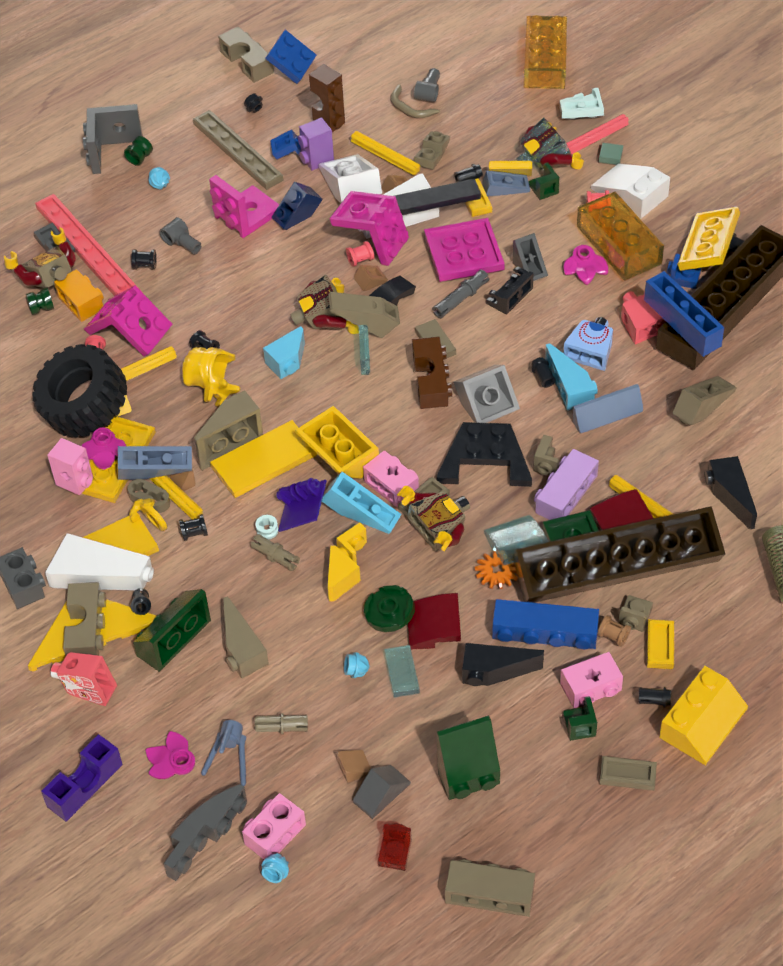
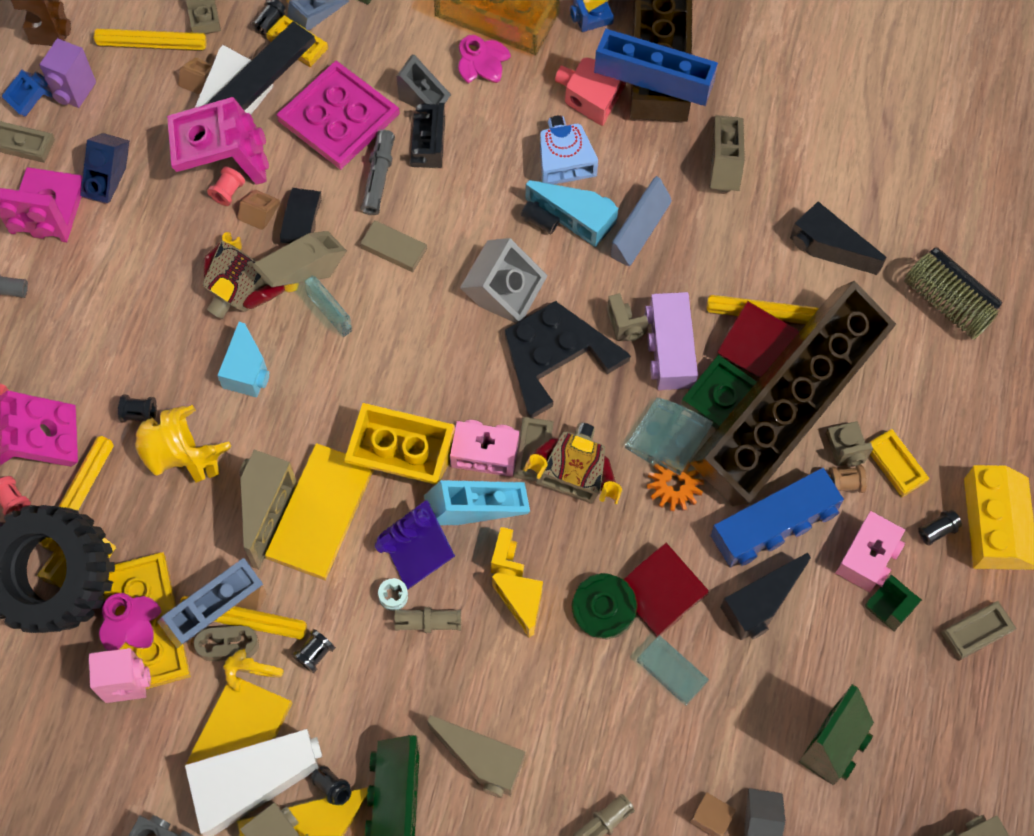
camera: 40 degrees left, 15 degrees up
(349, 175) = (139, 93): white slope -> none
(356, 665) = (624, 699): medium azure plate -> none
(429, 357) = (410, 271): reddish brown arch -> none

